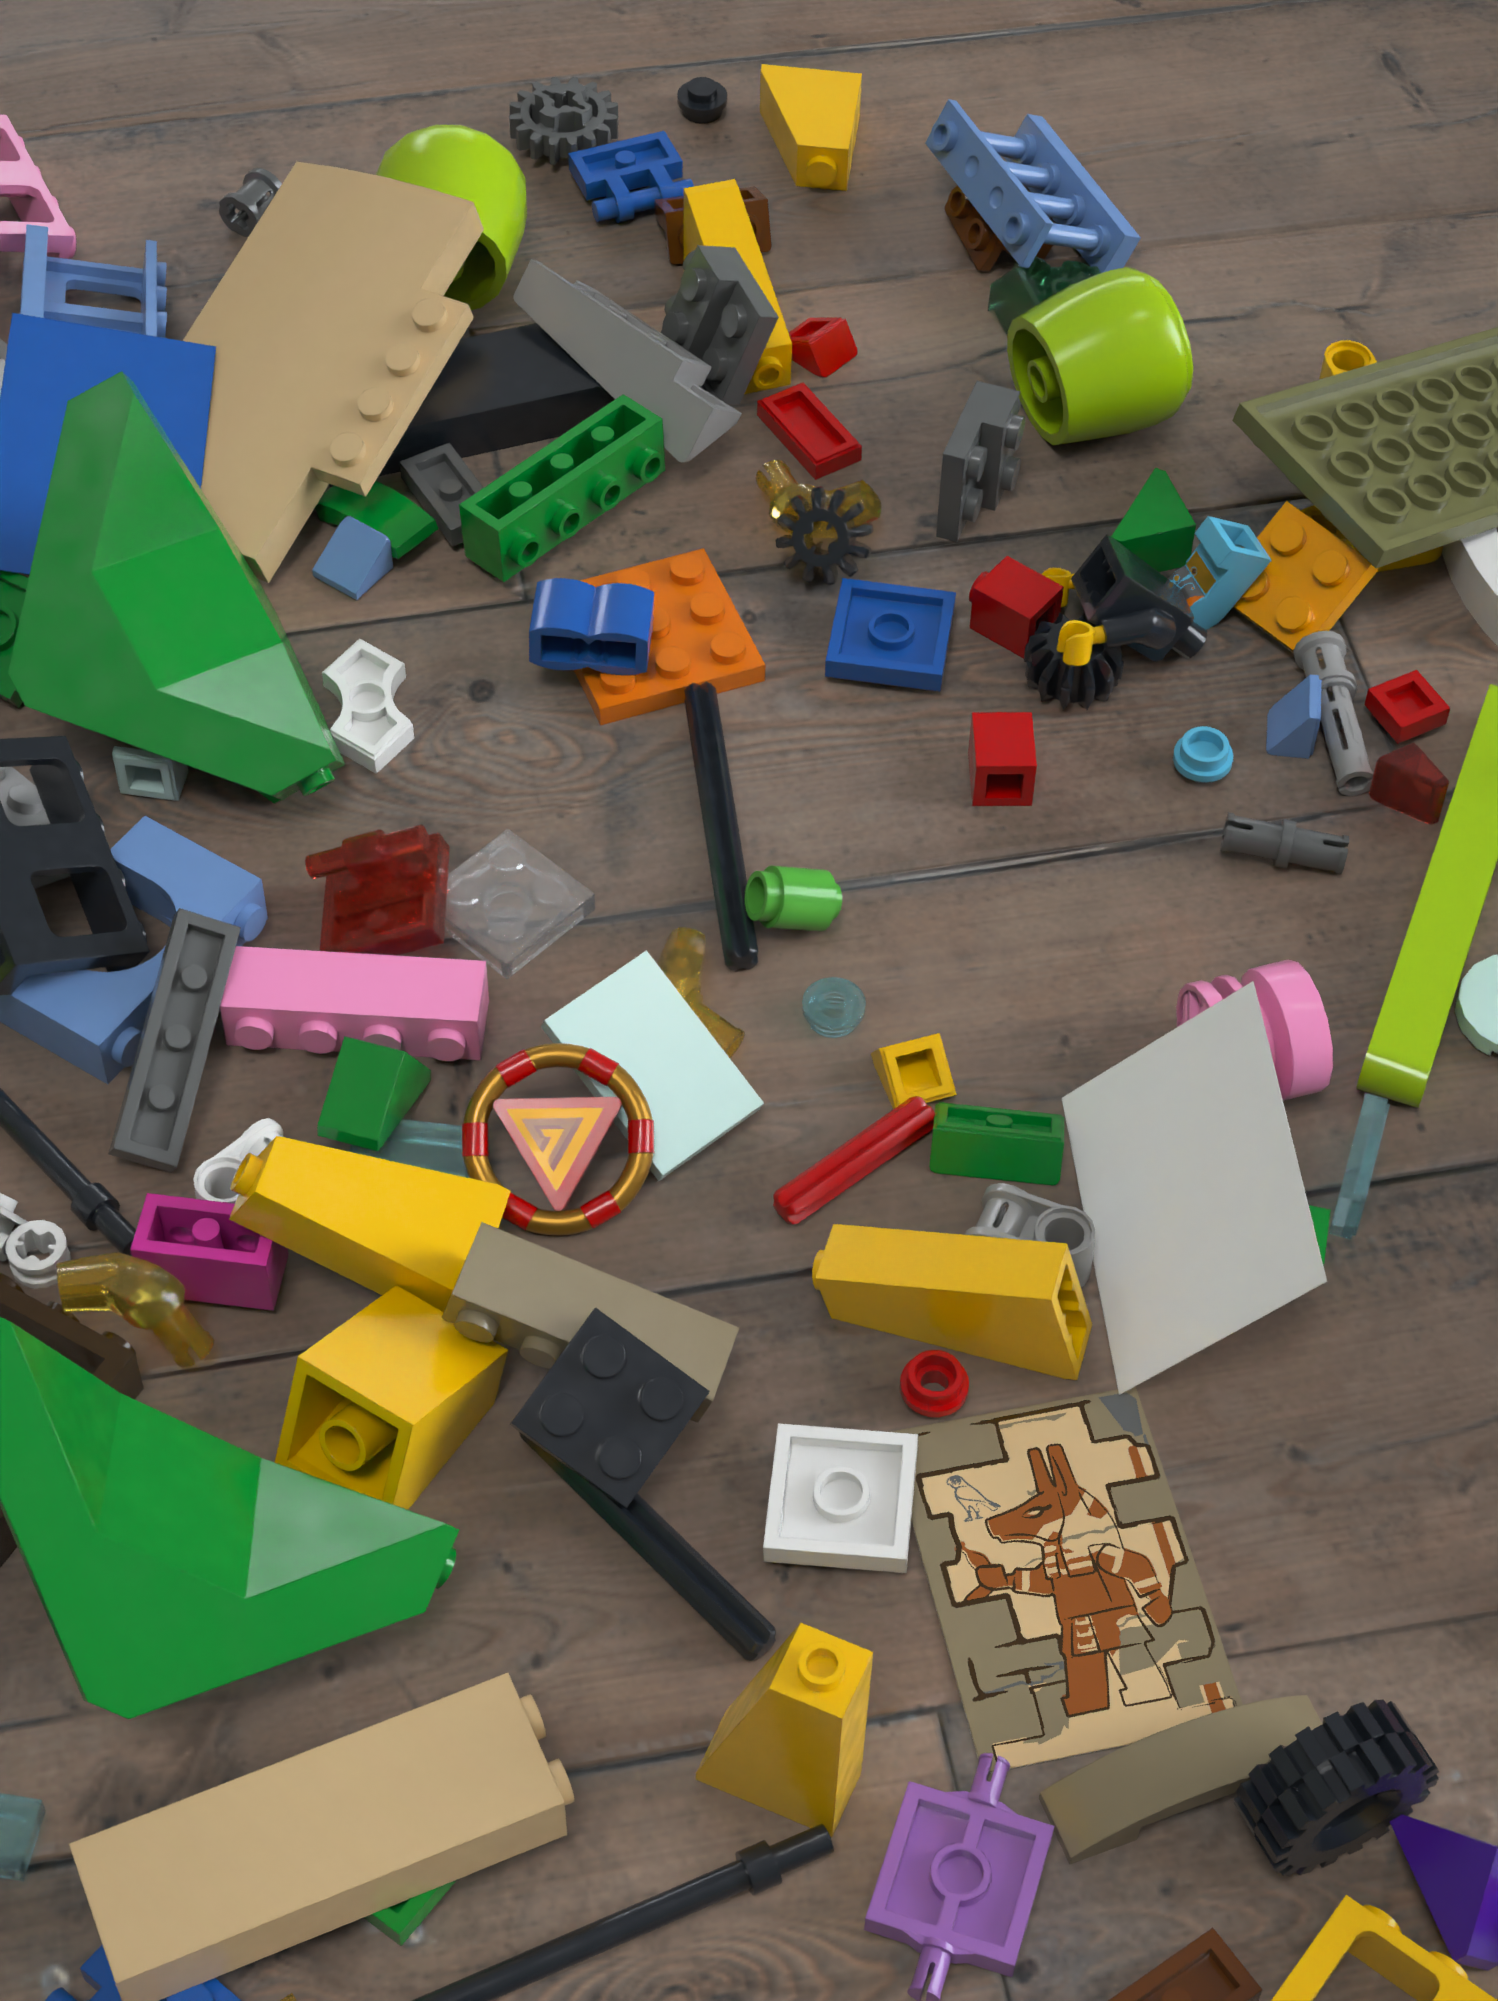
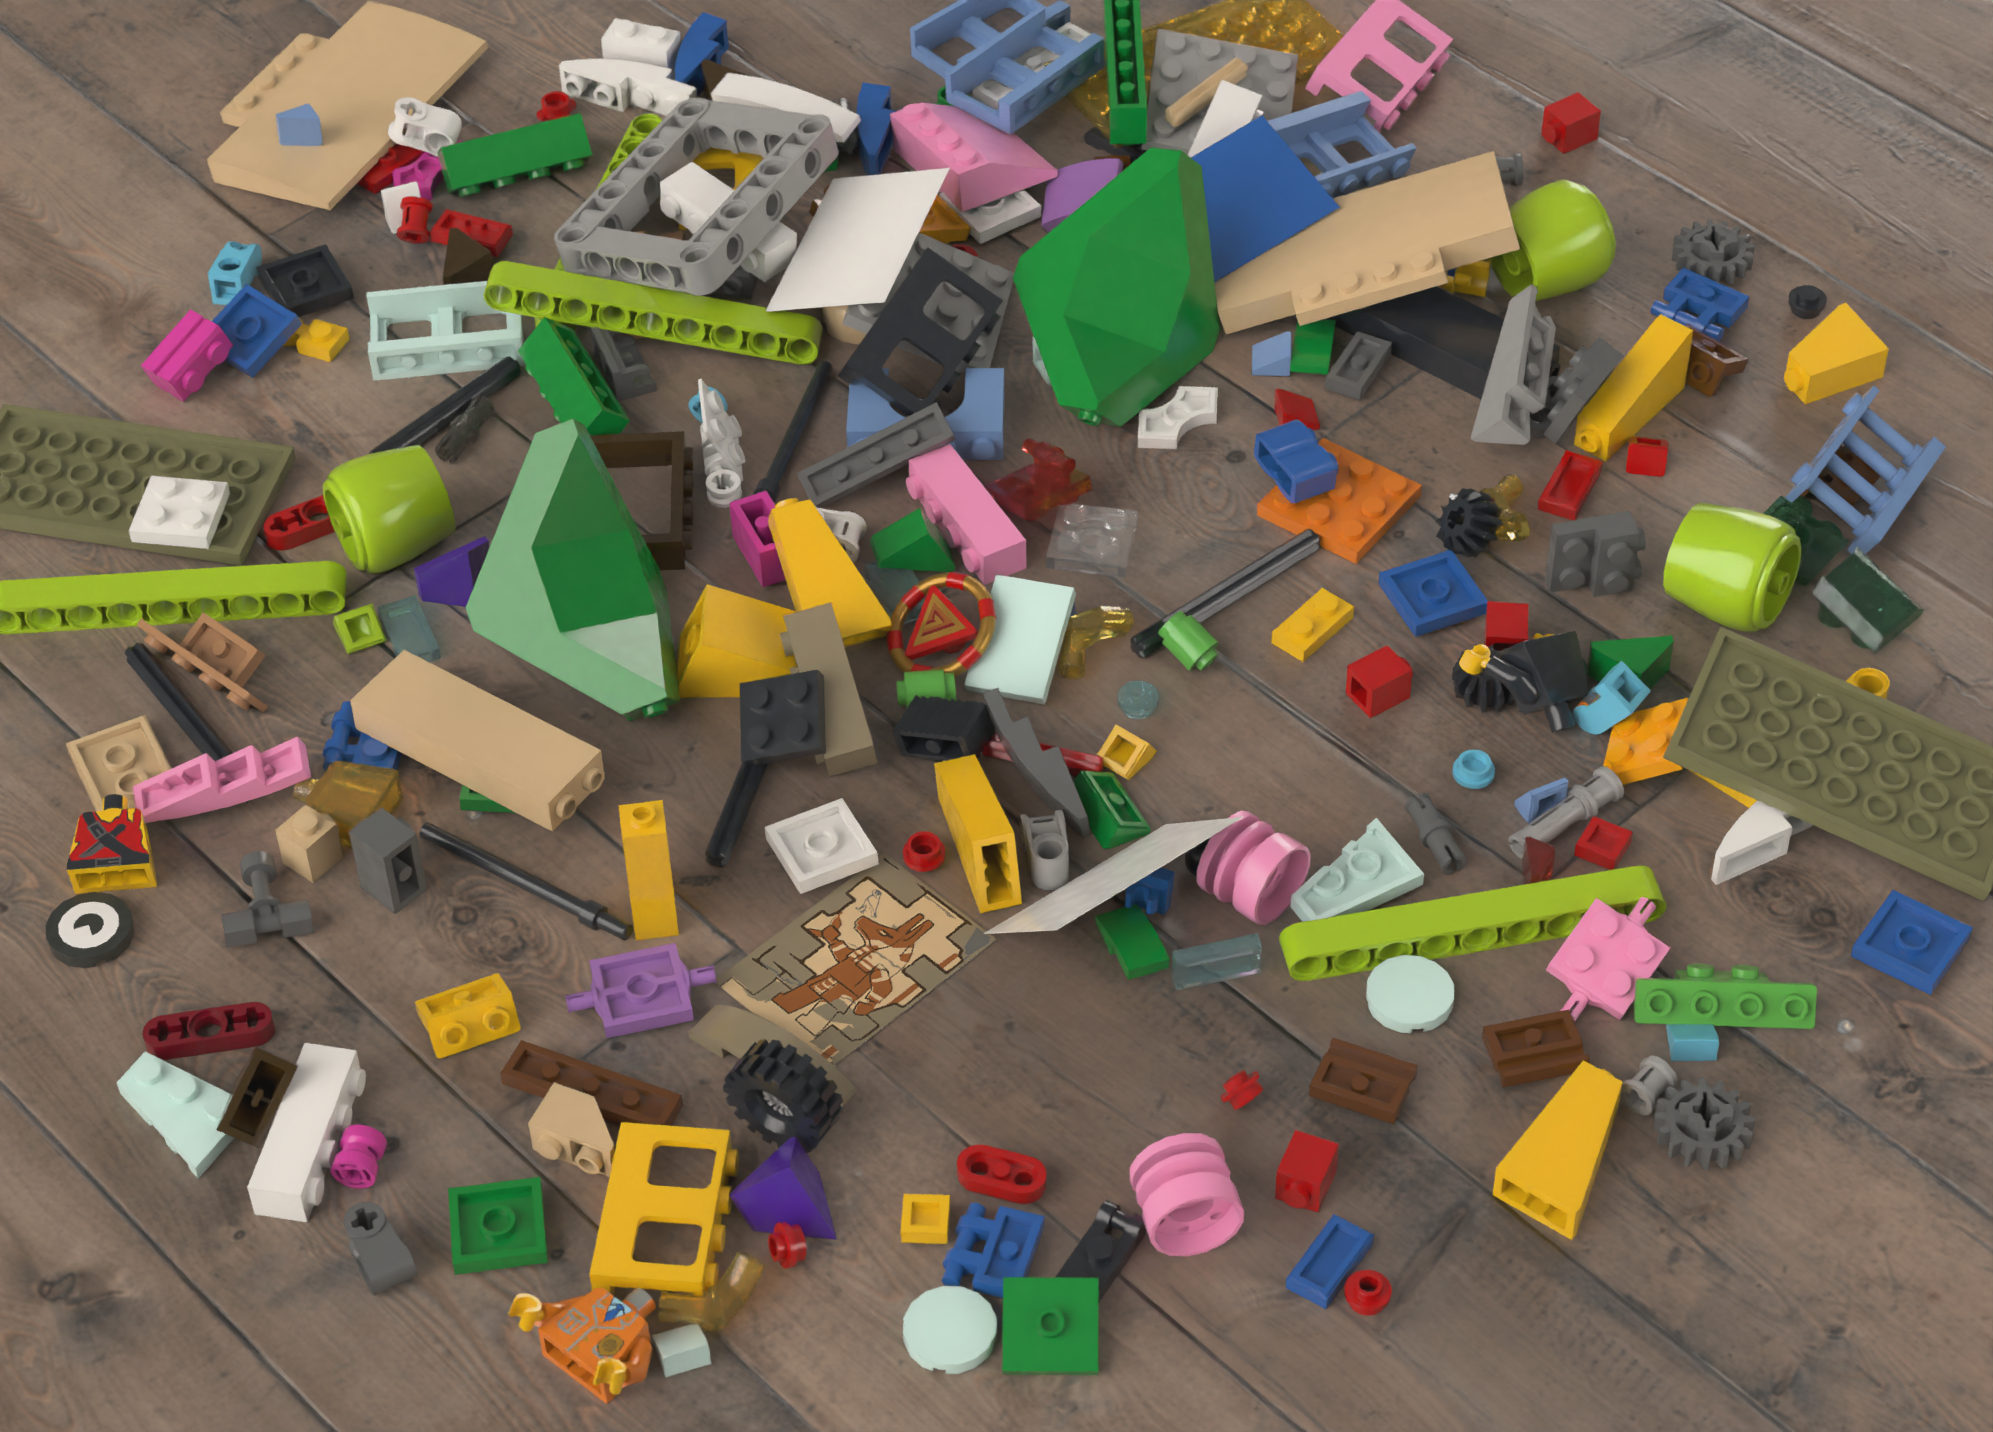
camera: 60 degrees right, 5 degrees down
(138, 1294) = (712, 527): clear yellow arm -> none
(238, 109) = (1571, 123): none -> red brick
(468, 595) = (1292, 406): none -> red slope
(562, 487) = (1398, 401): green brick -> none
(648, 1220) = (927, 684): none -> bright green brick
(749, 1235) = (943, 728): none -> black brick
(841, 772) = (1312, 624): none -> yellow plate
(920, 1168) = (1041, 769): none -> dark grey slope
(1212, 303) = (1864, 602): none -> clear green slope
(1320, 933) = (1360, 879): none -> light aqua wing

